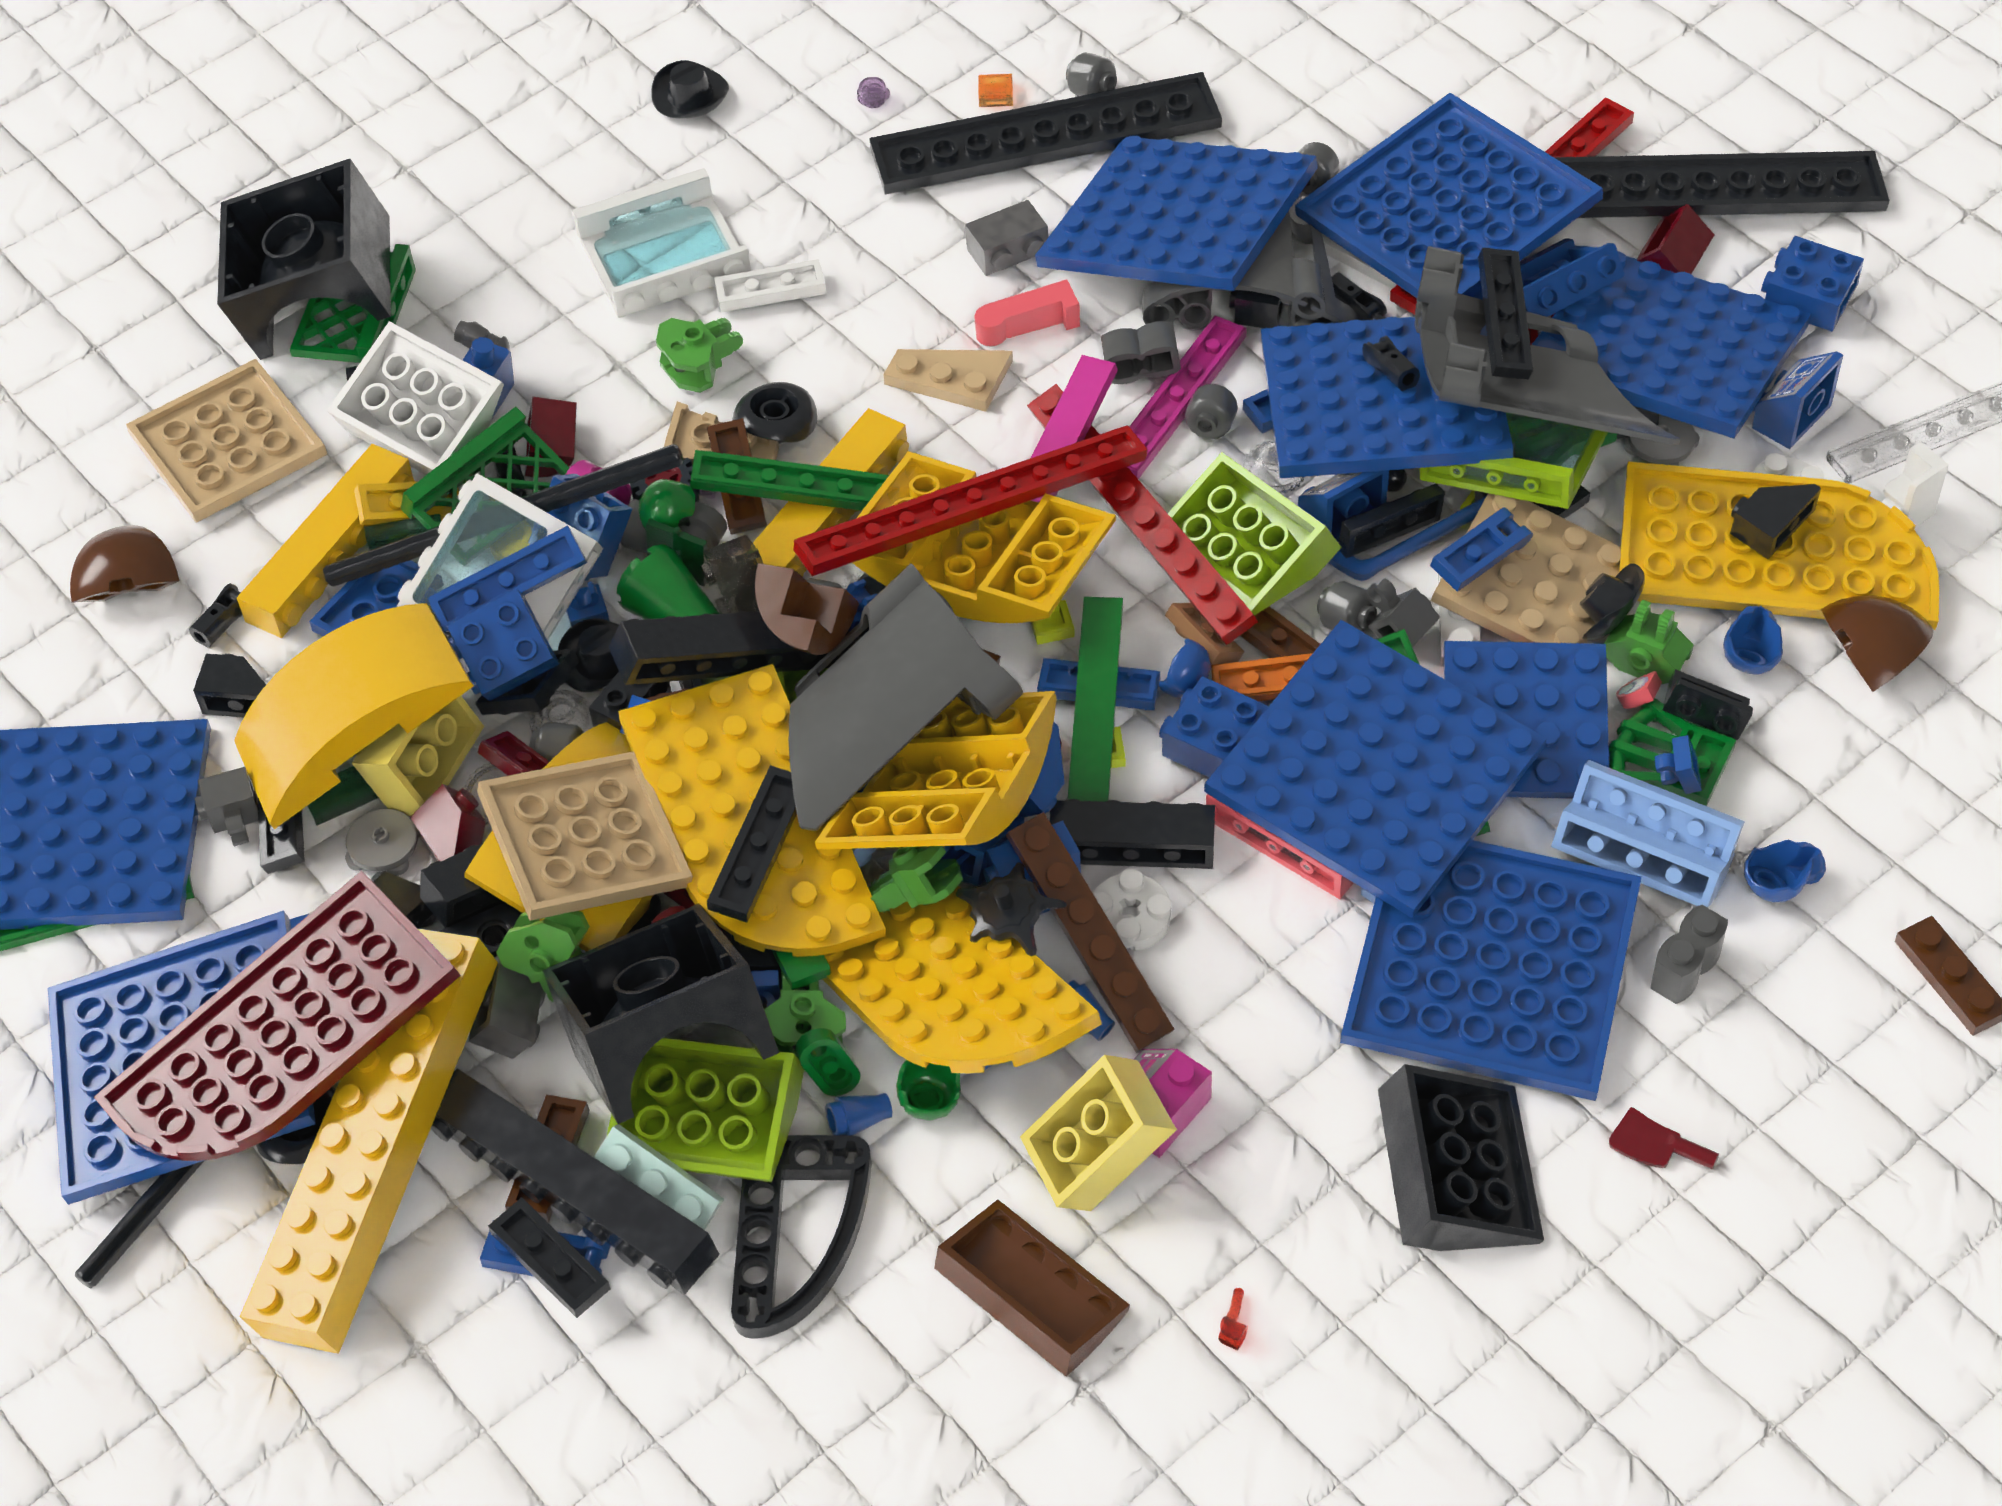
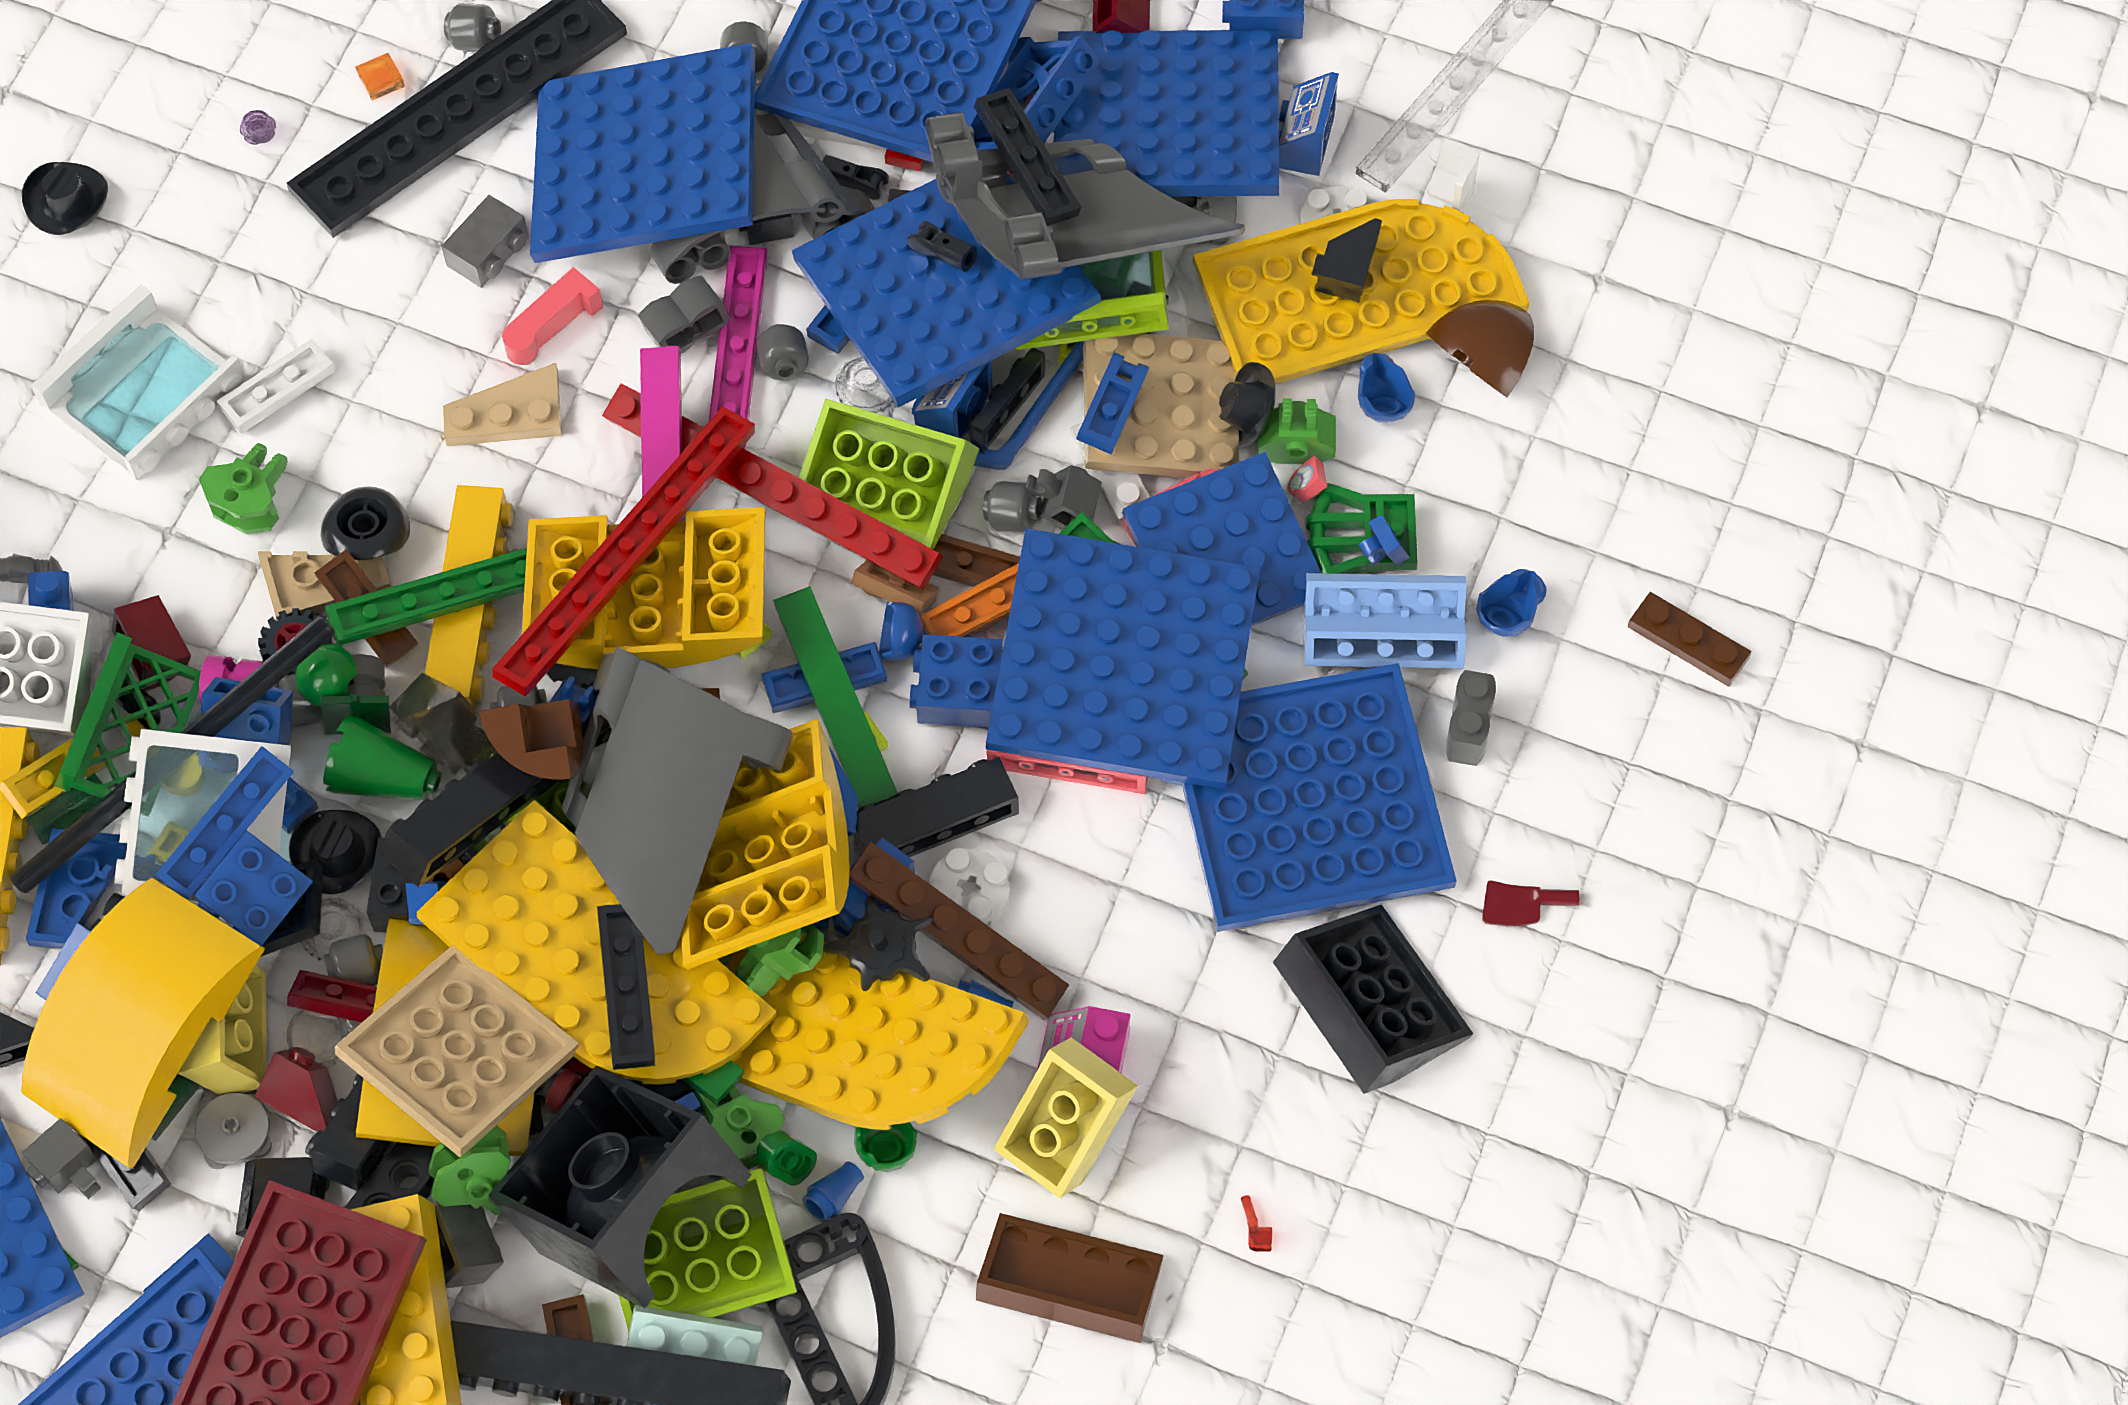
camera: 30 degrees left, 10 degrees up
(1707, 705) = (1374, 470): black bracket -> none

